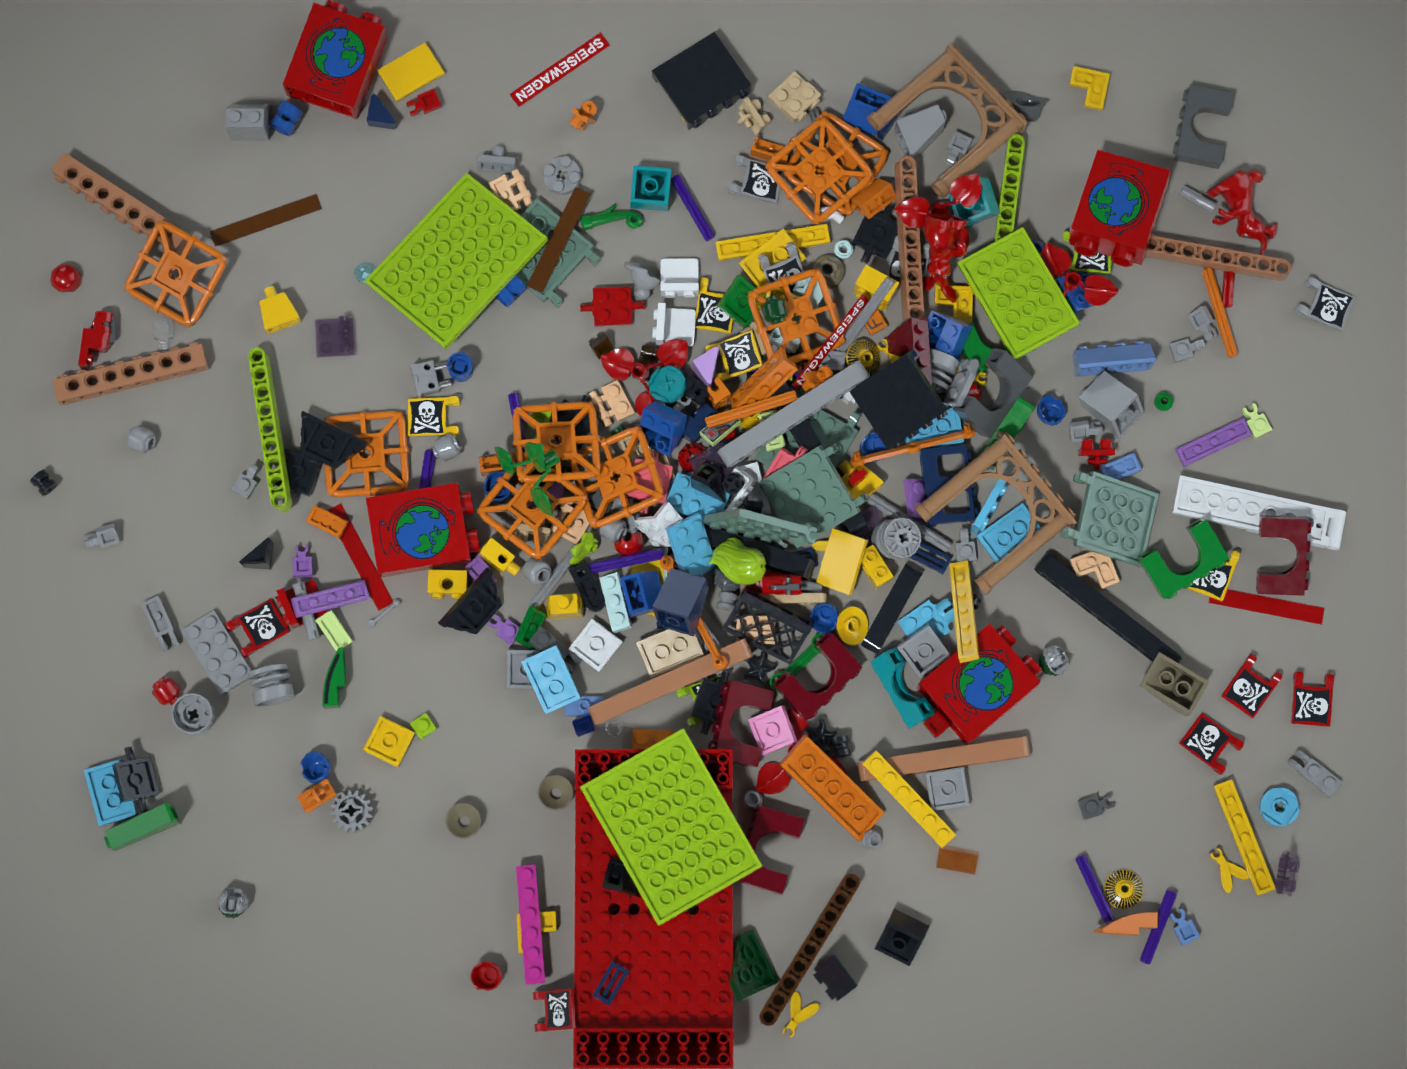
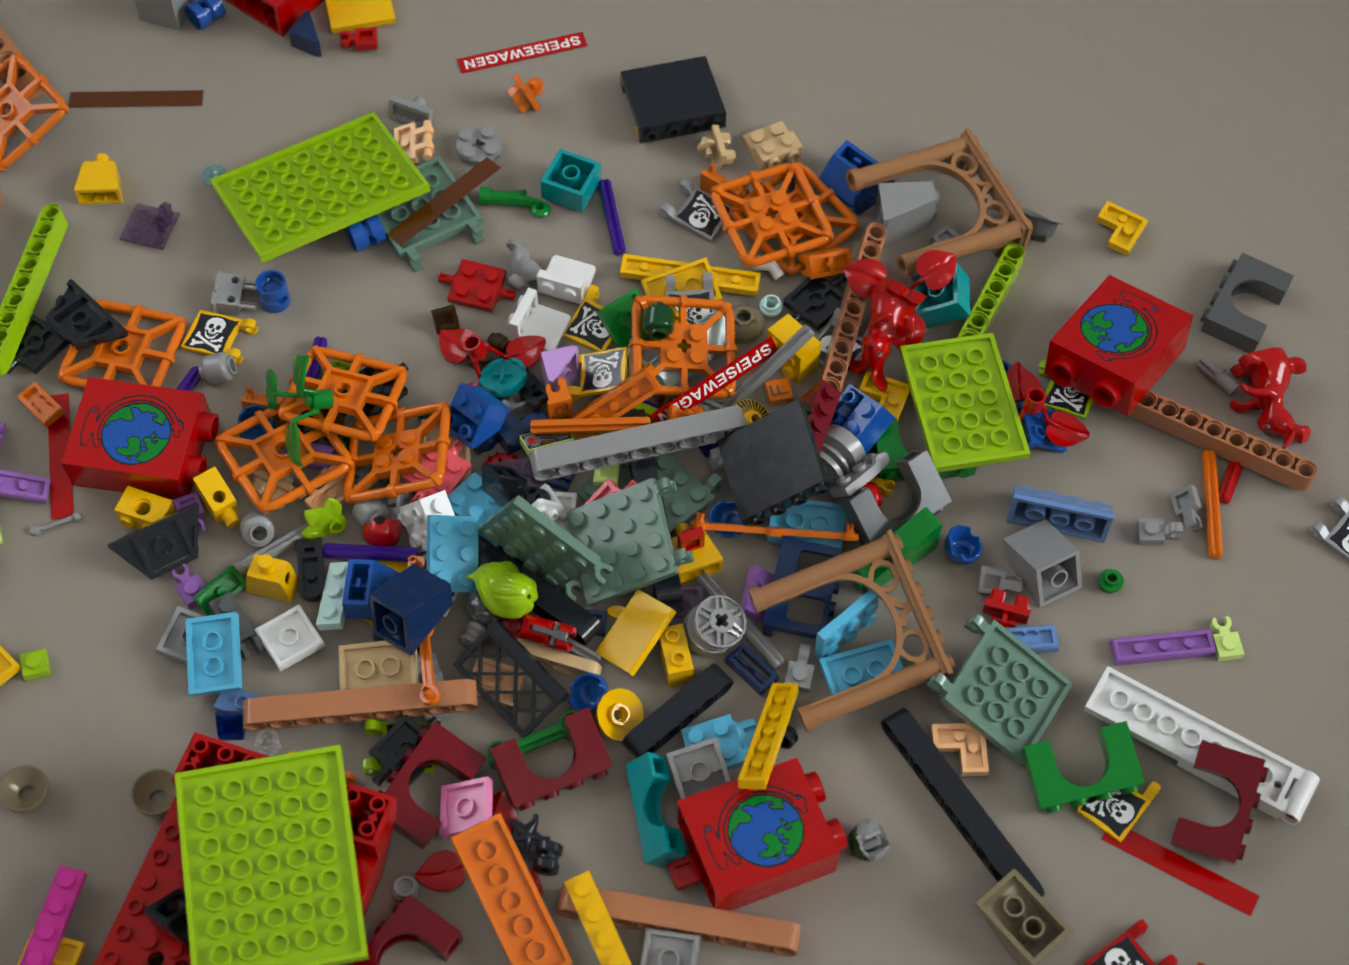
camera: 20 degrees right, 20 degrees down
(616, 400) = (439, 382): light nougat plate -> none
(758, 668) = (480, 728): black animal -> none

